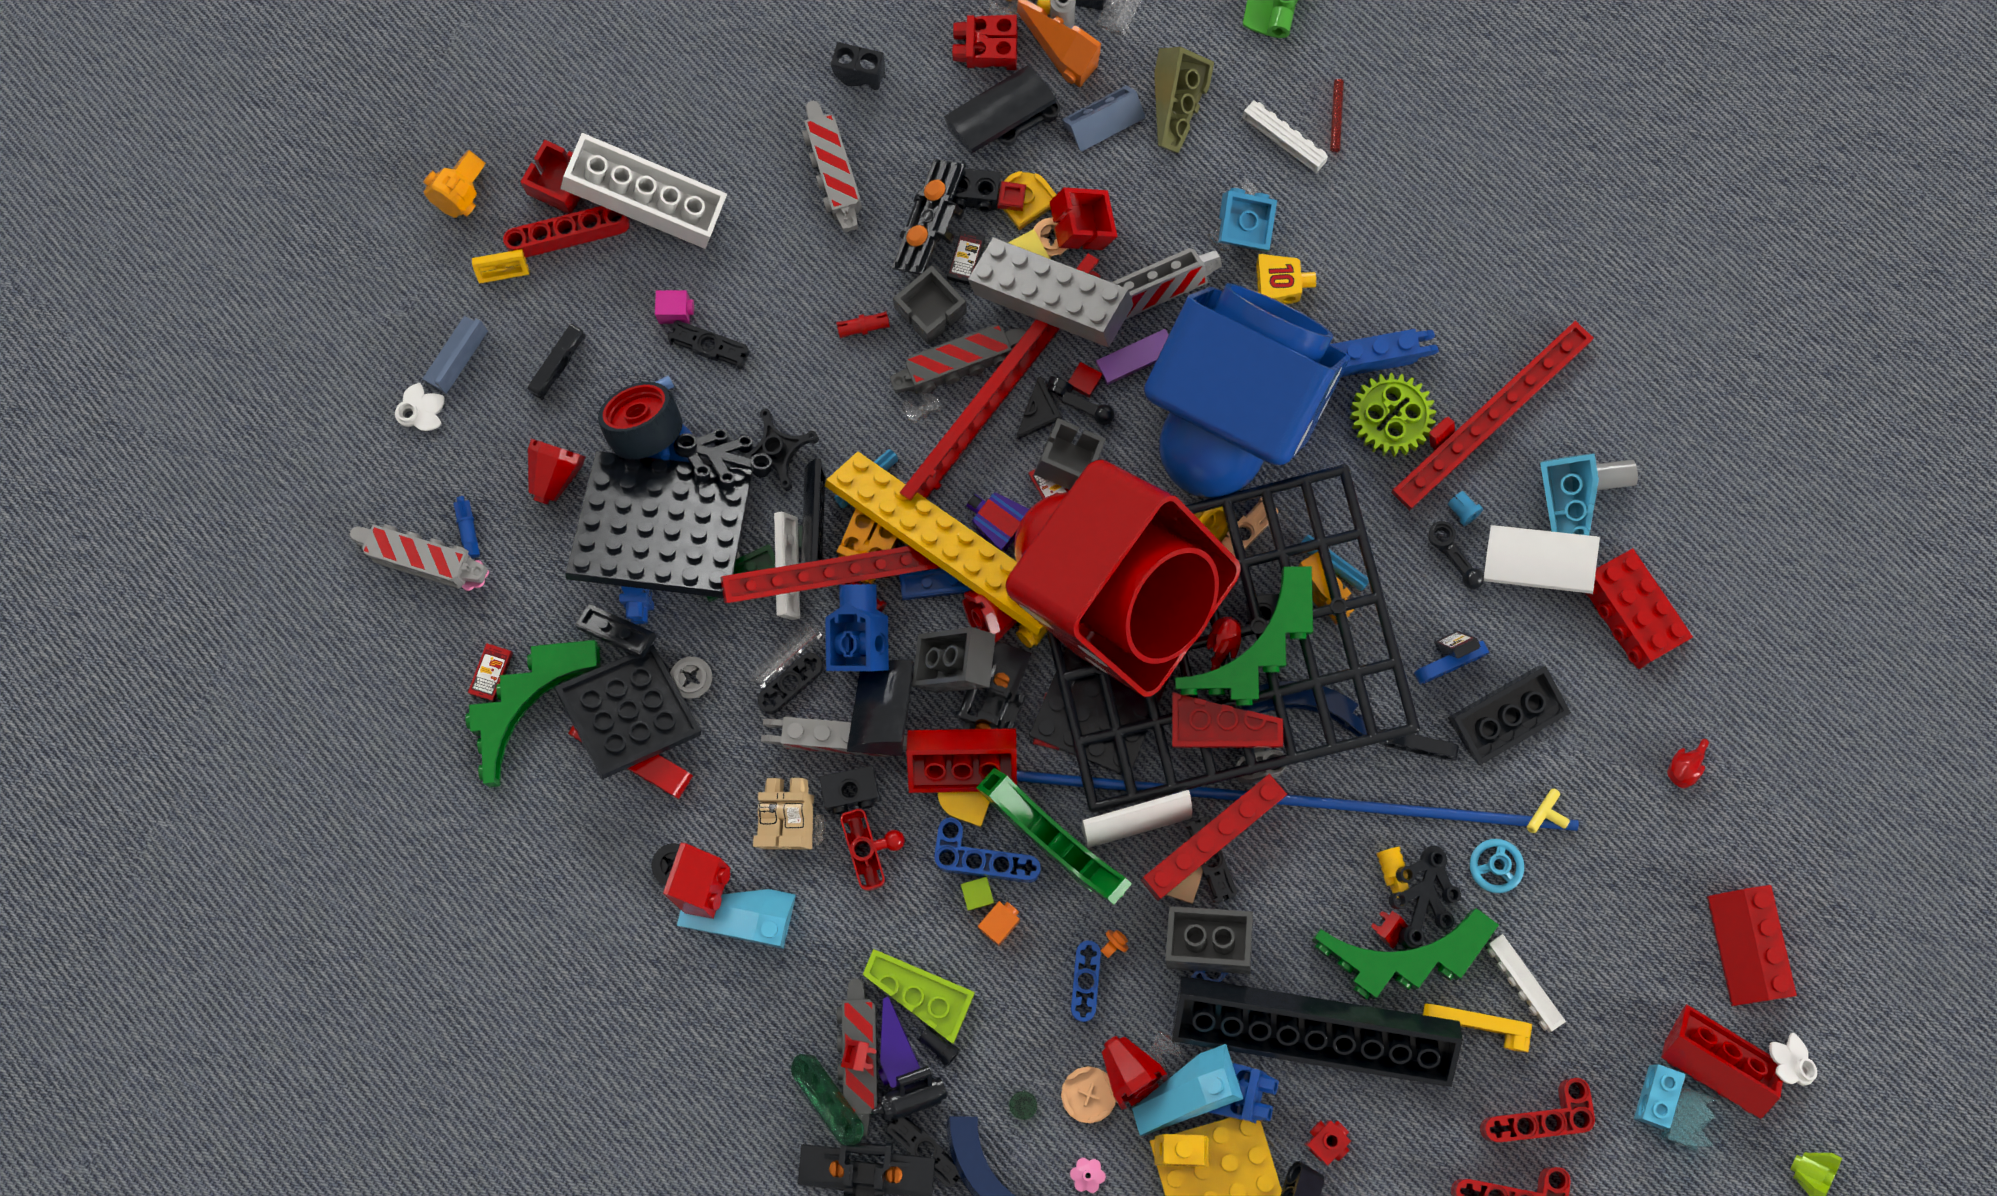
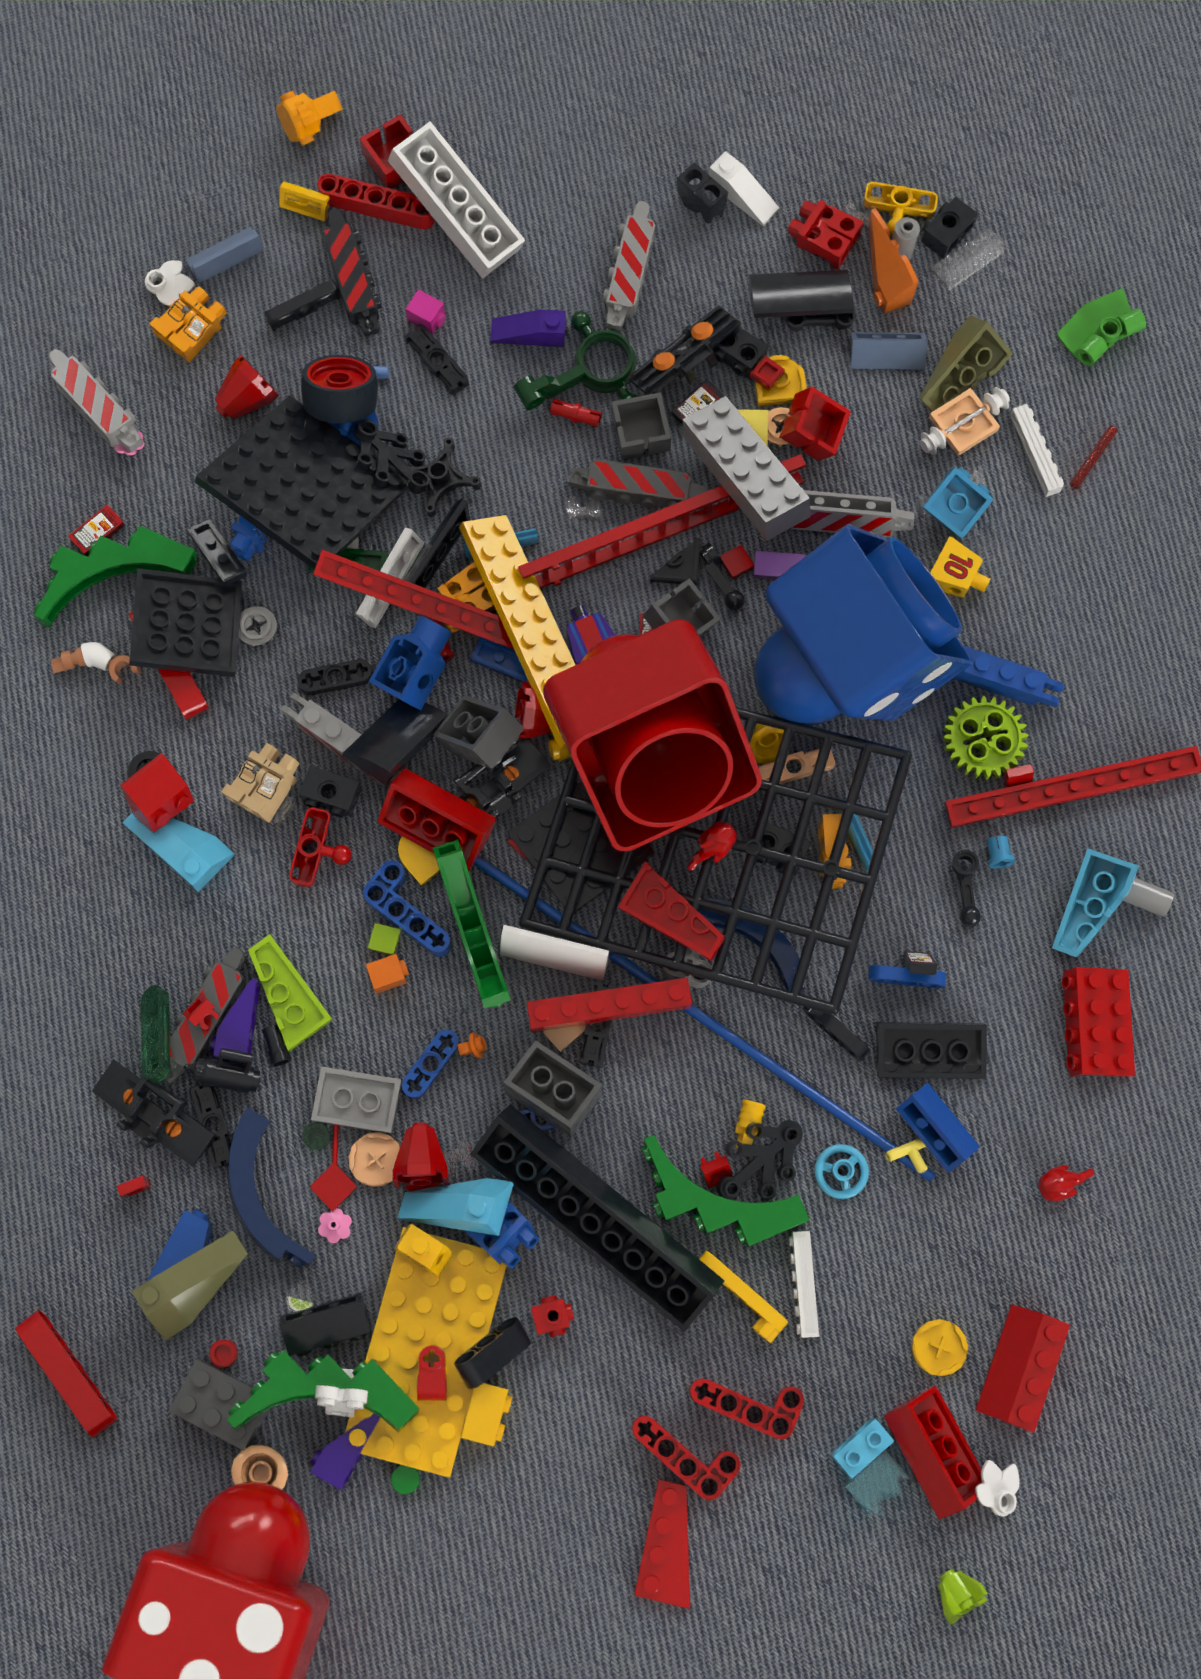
camera: 25 degrees right, 0 degrees up
(461, 435) = (189, 324): none -> light orange hips
(466, 526) = (148, 400): blue piece -> none
(559, 788) = (93, 655): none -> piece
(583, 309) = (350, 273): none -> black hinge
(776, 271) = (530, 328): none -> dark purple slope
(785, 654) = (345, 651): clear slope -> none
(817, 327) = (533, 392): none -> dark green piece
(892, 41) = (743, 188): none -> white slope
(1040, 1052) = (356, 1100): none -> light grey plate
(1064, 1139) = (333, 1184): none -> red piece
(1208, 145) = (964, 421): none -> light nougat plate
(1291, 617) = (710, 879): green arch -> none
(1541, 559) = (1039, 932): white slope -> none
(1557, 779) = (938, 1128): none -> blue brick
(1670, 969) = (939, 1347): none -> yellow tile

